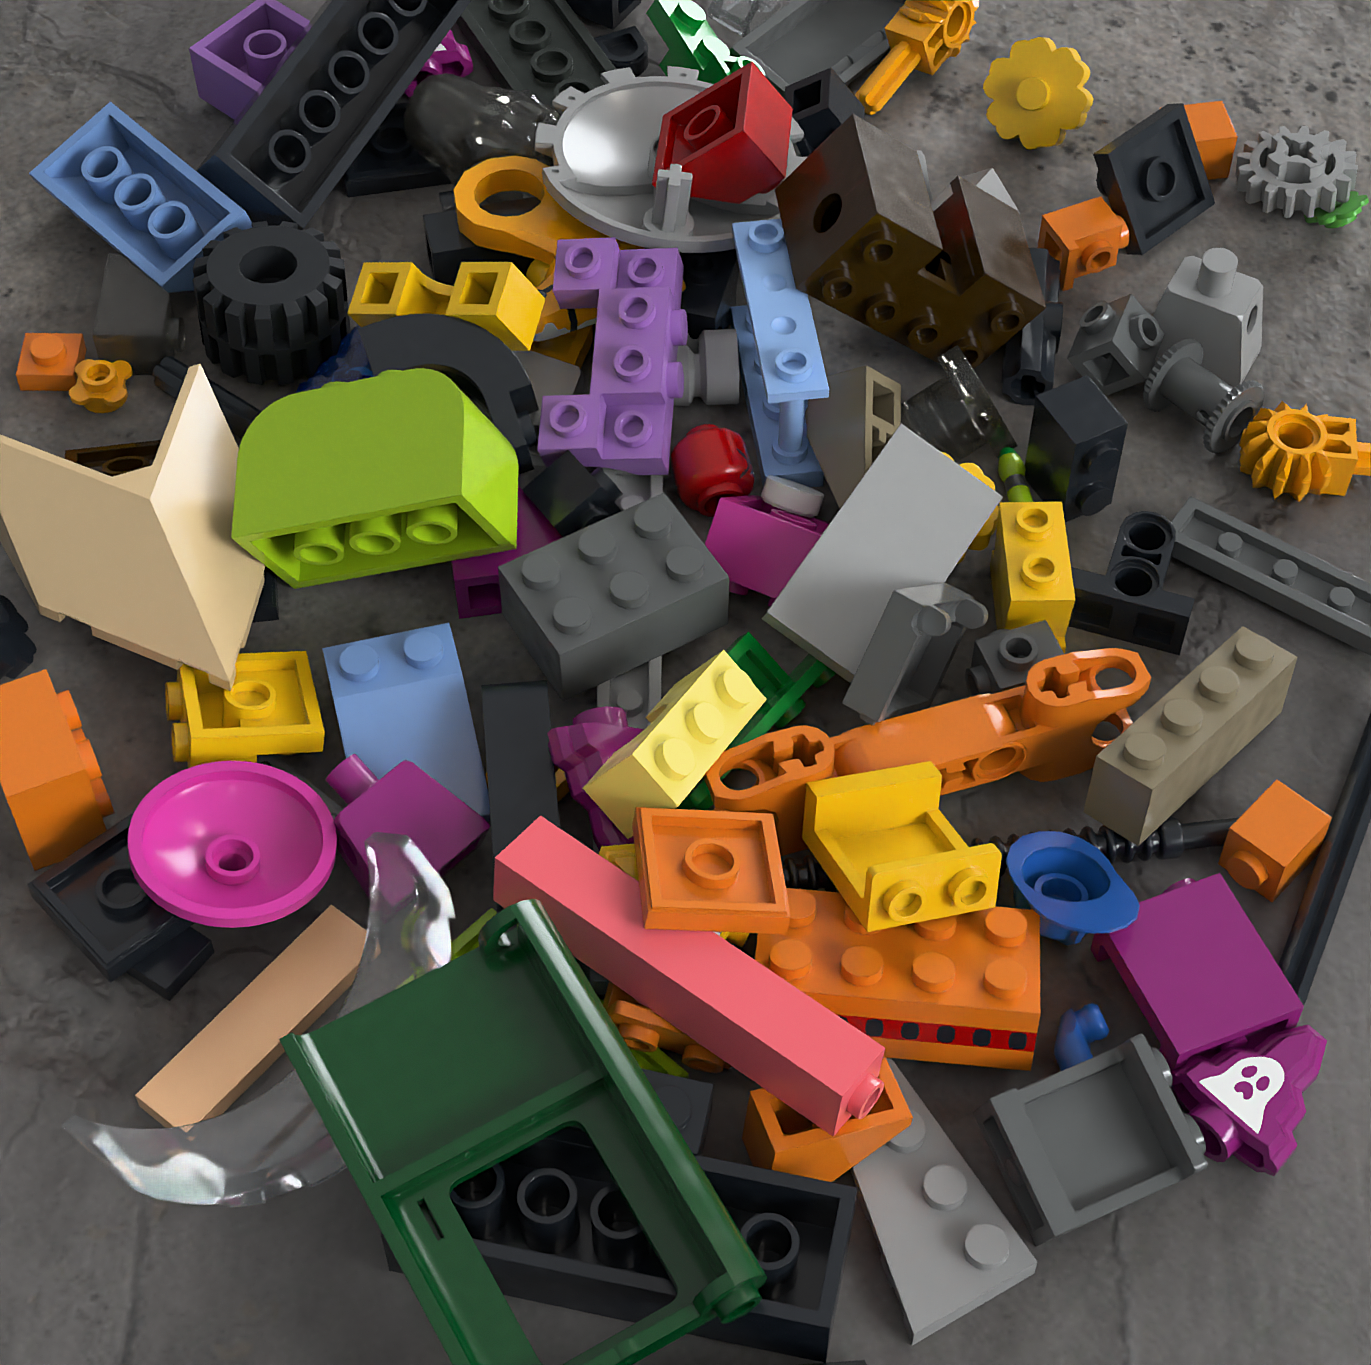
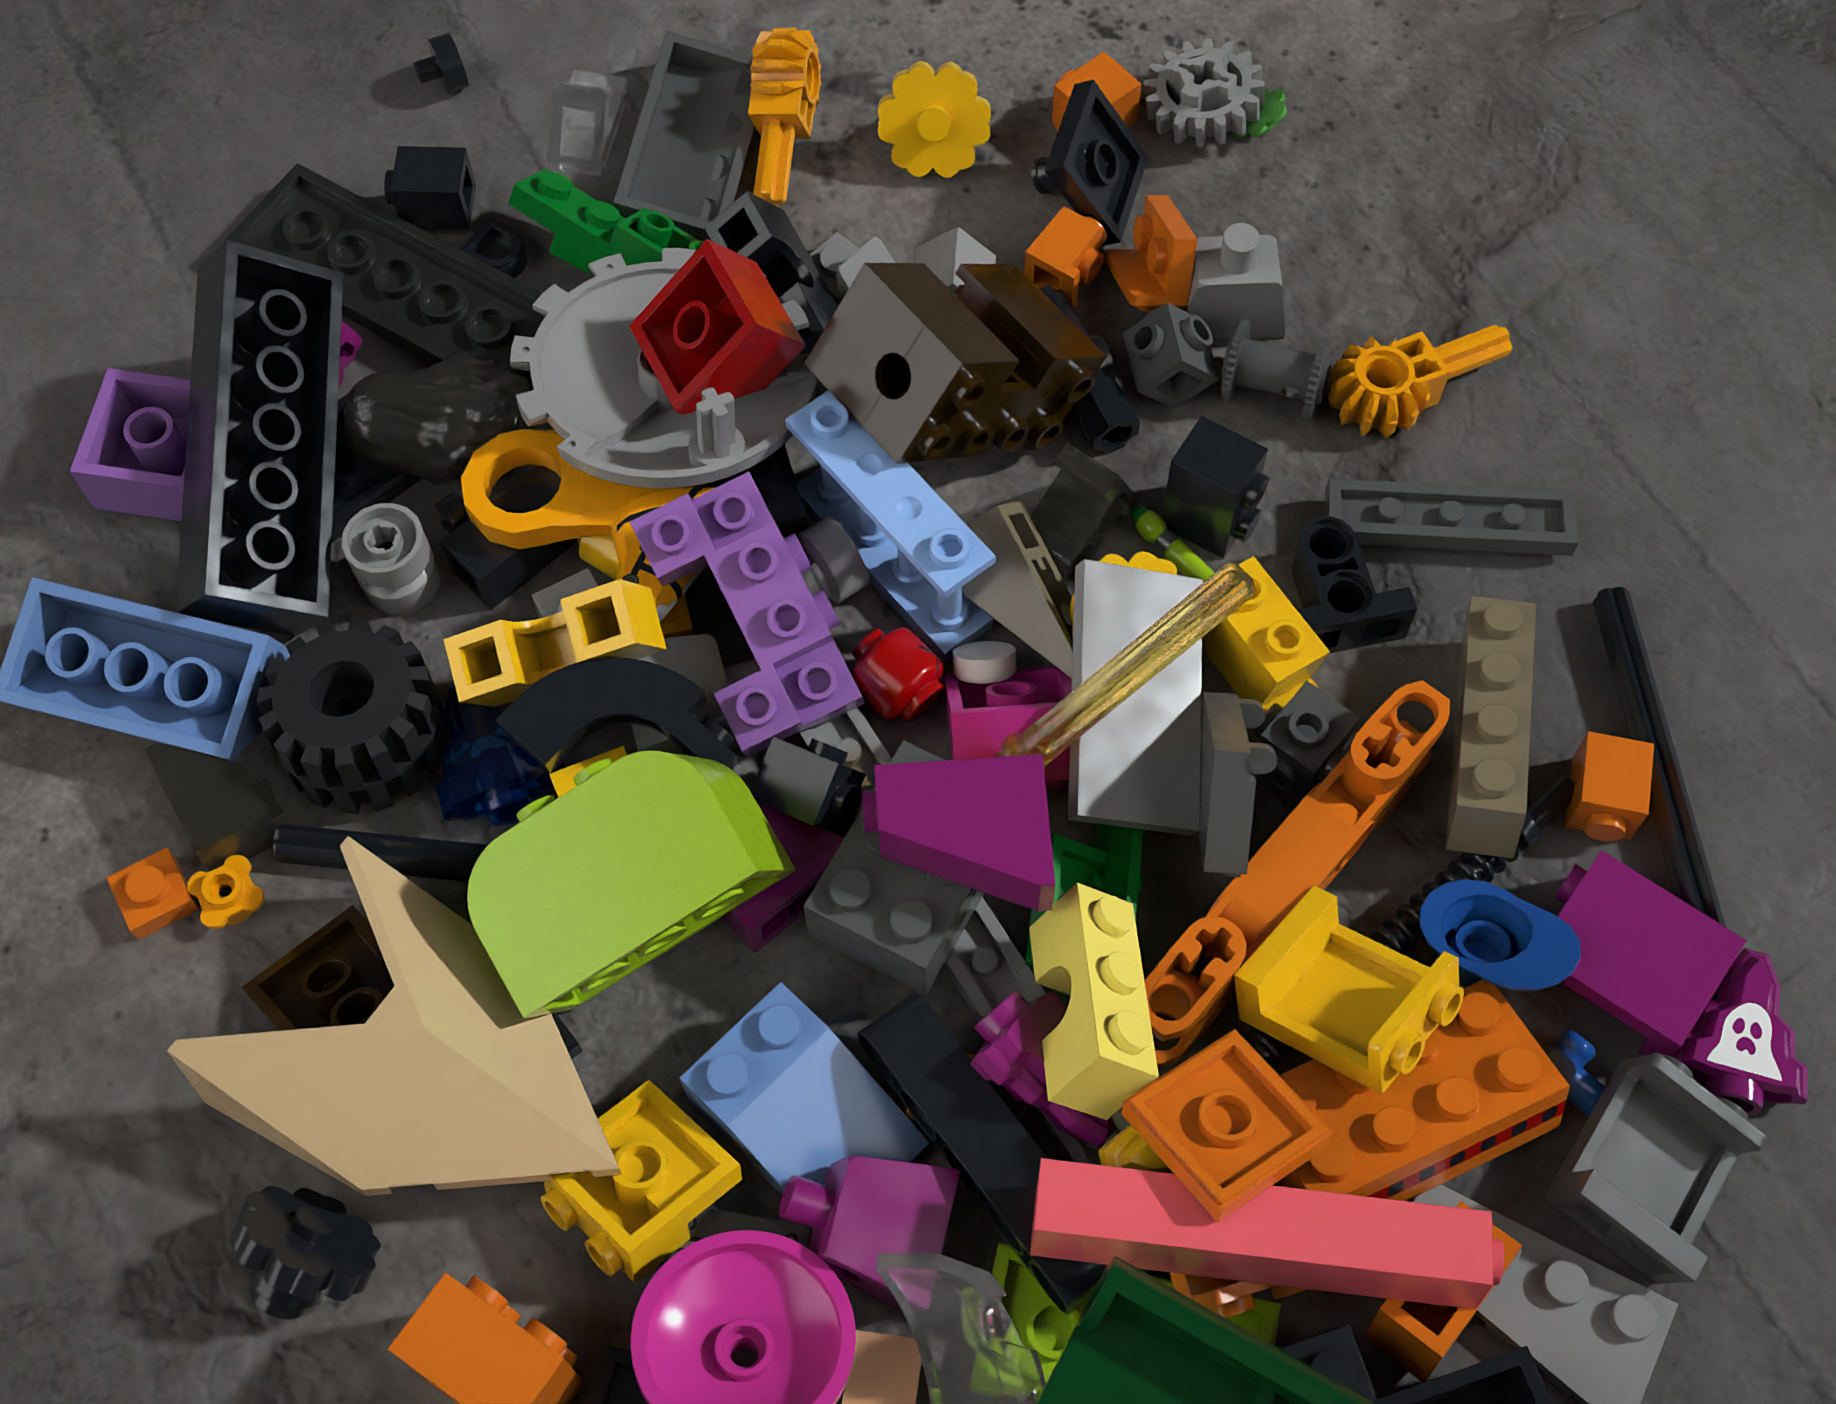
camera: 30 degrees left, 10 degrees up
(381, 213) = (391, 558): none -> light grey wheel
(662, 557) = (968, 824): none -> magenta slope
(763, 552) = (1134, 665): none -> clear yellow axle
(1151, 275) = (1162, 258): none -> orange bracket

